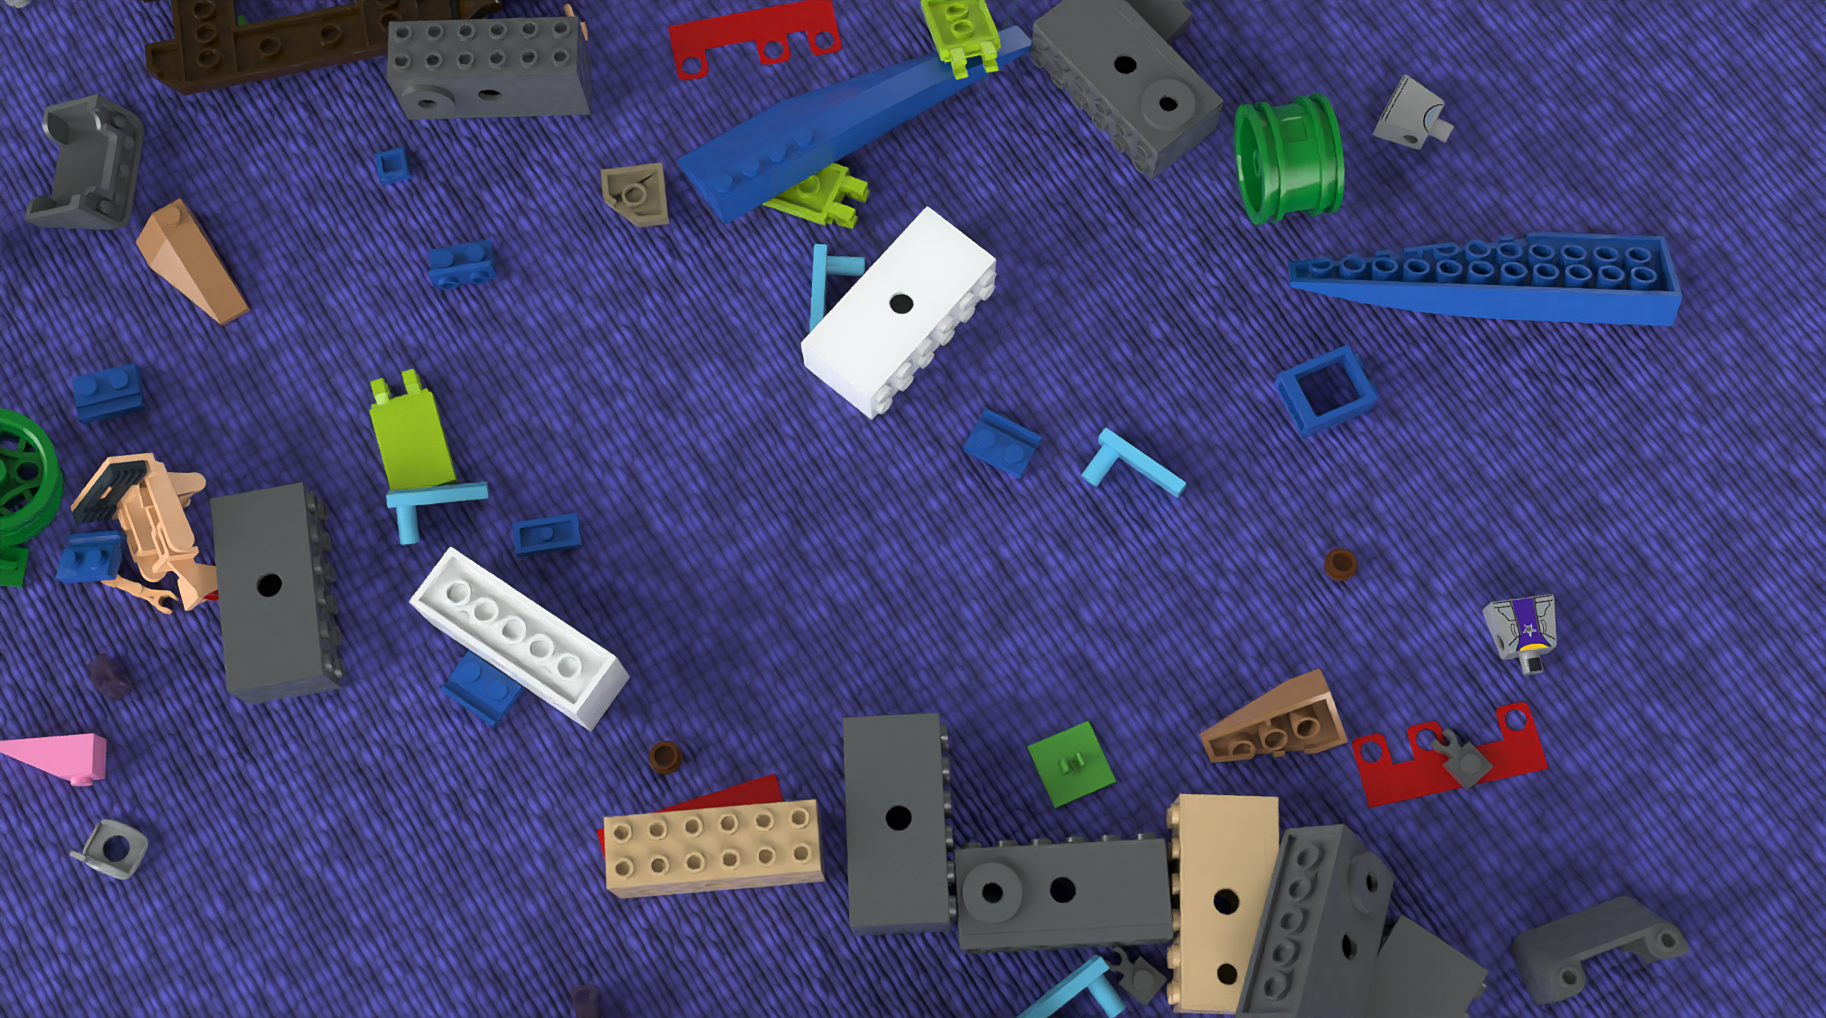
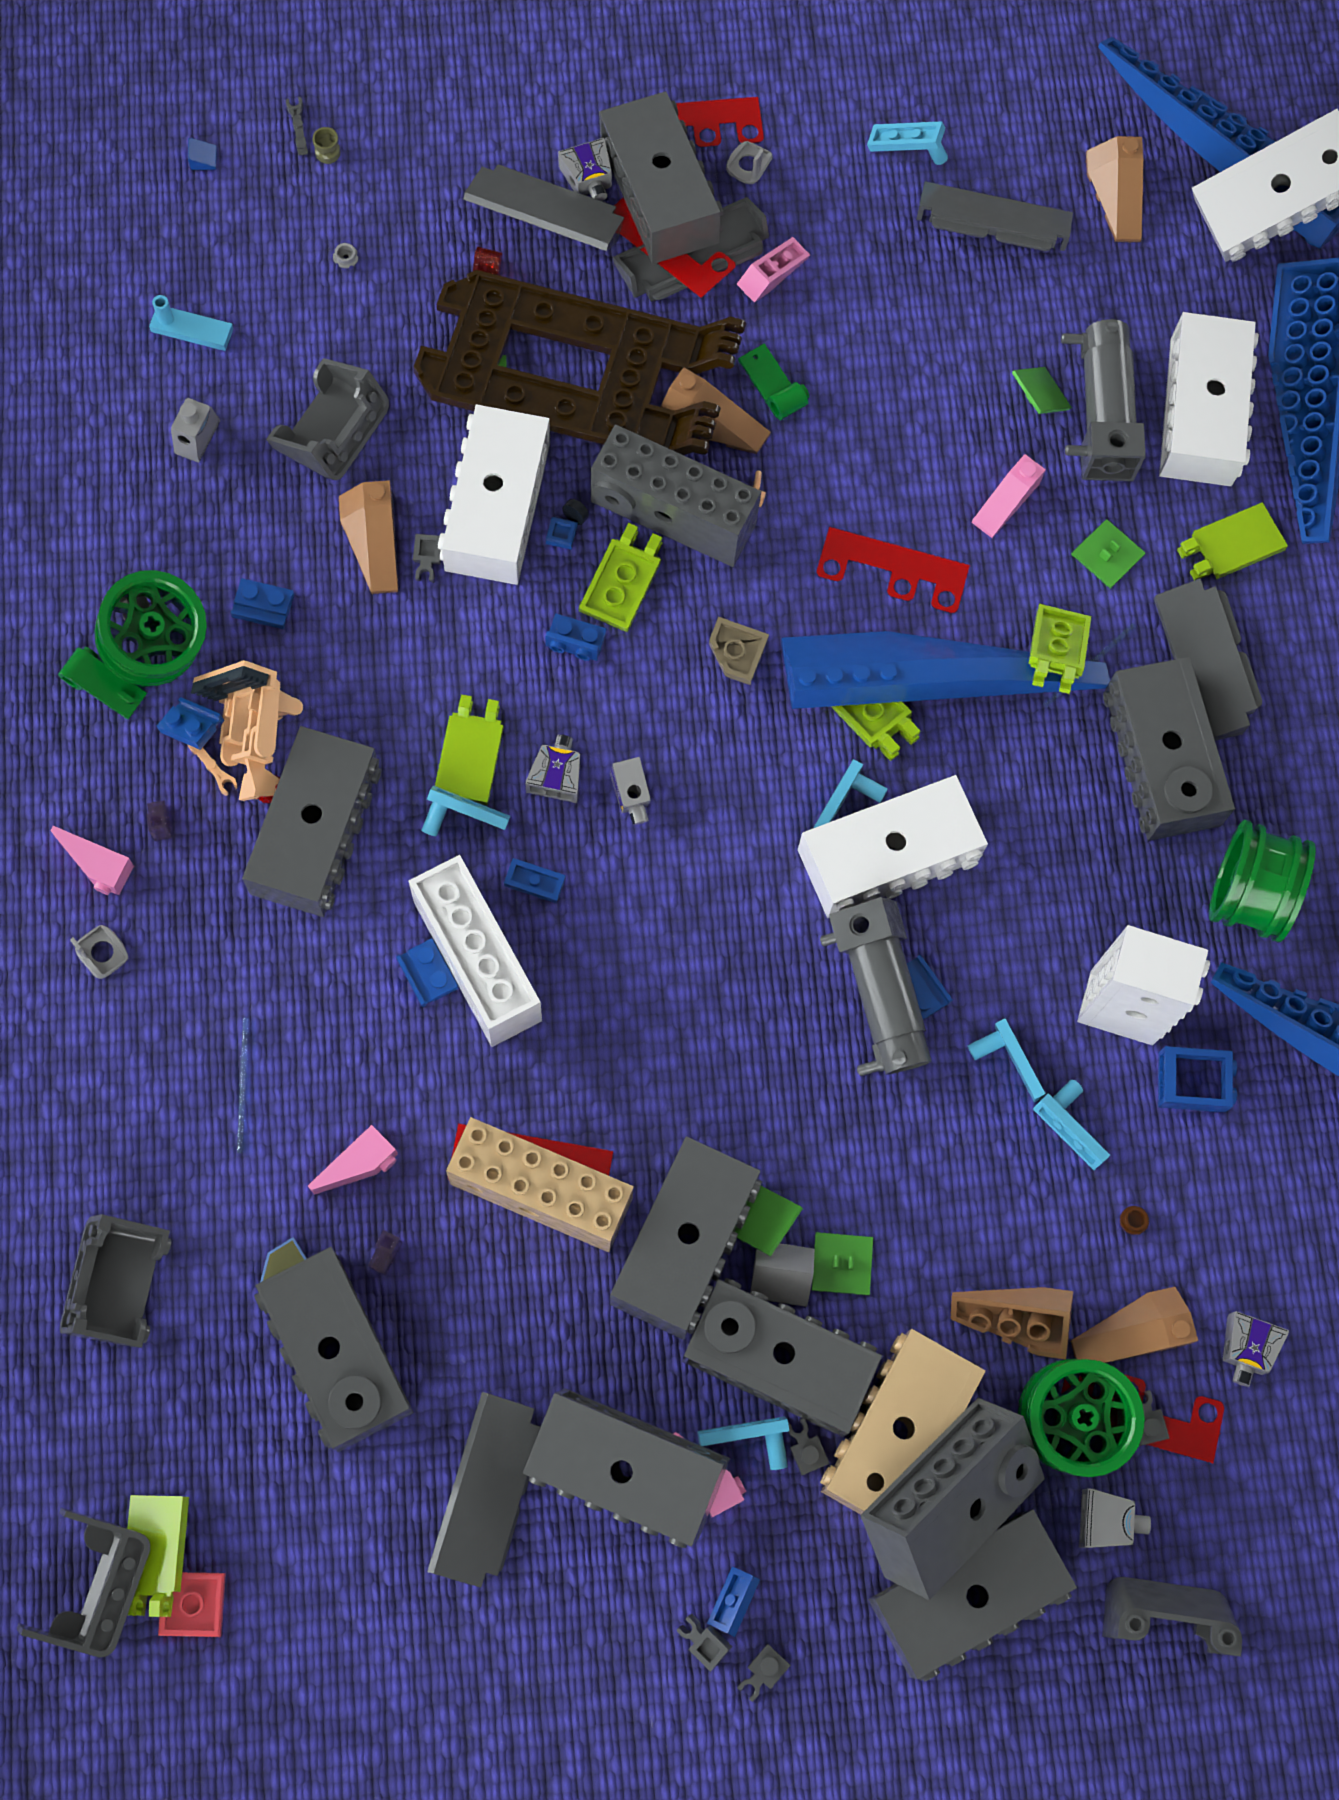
camera: 20 degrees right, 0 degrees up
(260, 253) = (427, 554): none -> dark grey plate
(301, 158) = (495, 494): none -> white piece
(341, 907) = (242, 1085): none -> clear light blue piece
(396, 136) = (575, 511): none -> black tile
(481, 182) = (622, 580): none -> lime tile
(509, 926) = (359, 1161): none -> bright pink slope
(511, 411) = (556, 771): none -> torso
(590, 380) = (626, 778): none -> light grey torso
(665, 757) = (537, 1096): reddish brown plate -> none
(963, 456) = (882, 983): none -> dark grey piece
(973, 761) = (768, 1221): none -> bright green piece
(1016, 806) = (785, 1275): none -> light grey slope
(1229, 507) = (1054, 1114): none -> medium azure piece
(1230, 319) = (1143, 985): none -> white piece
(1400, 791) = (1095, 1419): none -> green wheel
(1407, 667) = (1143, 1327): none -> medium nougat wedge
(1479, 883) = (1109, 1520): none -> light grey torso

